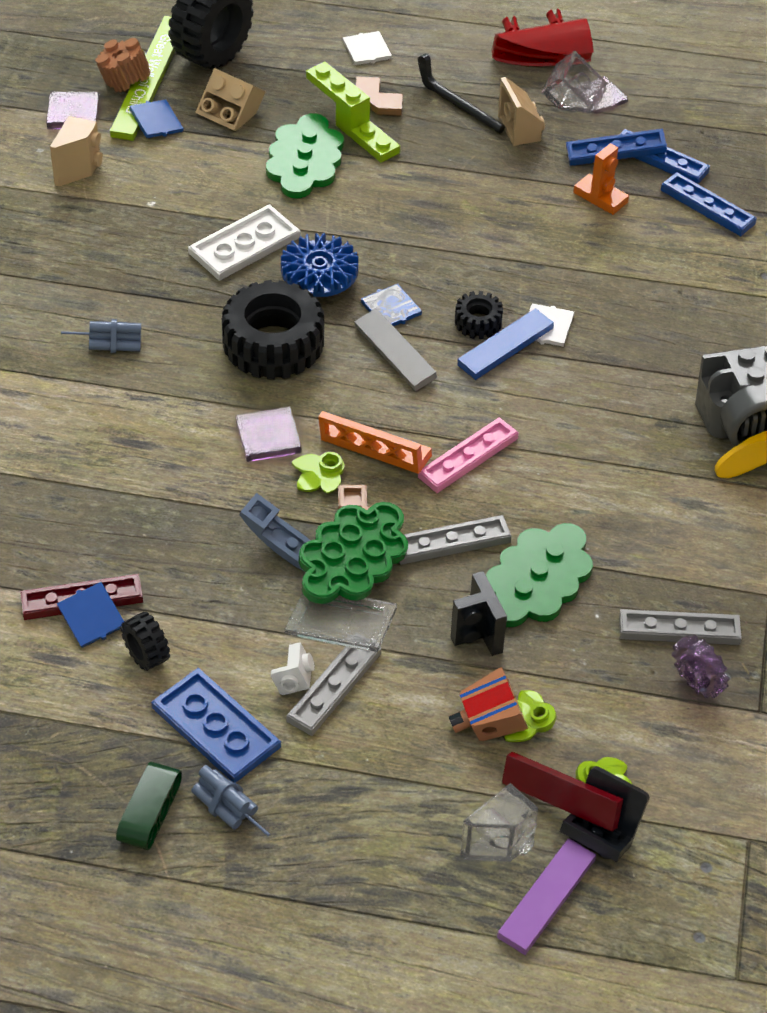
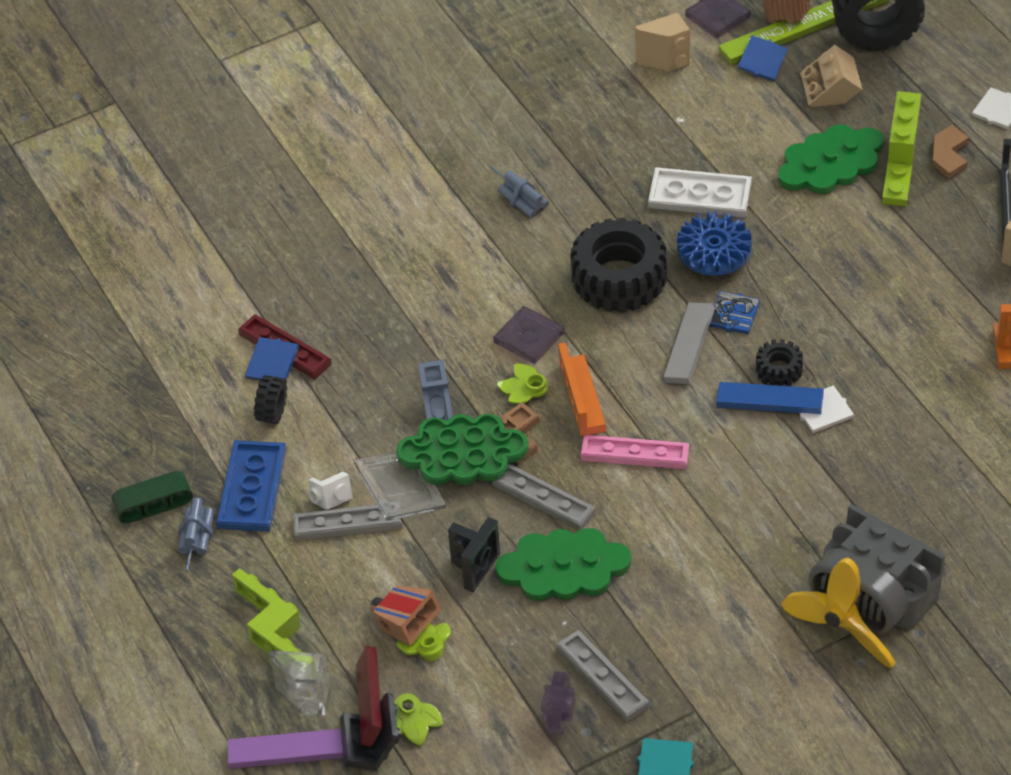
camera: 55 degrees right, 0 degrees up
(402, 809) = (275, 621): none -> lime bracket

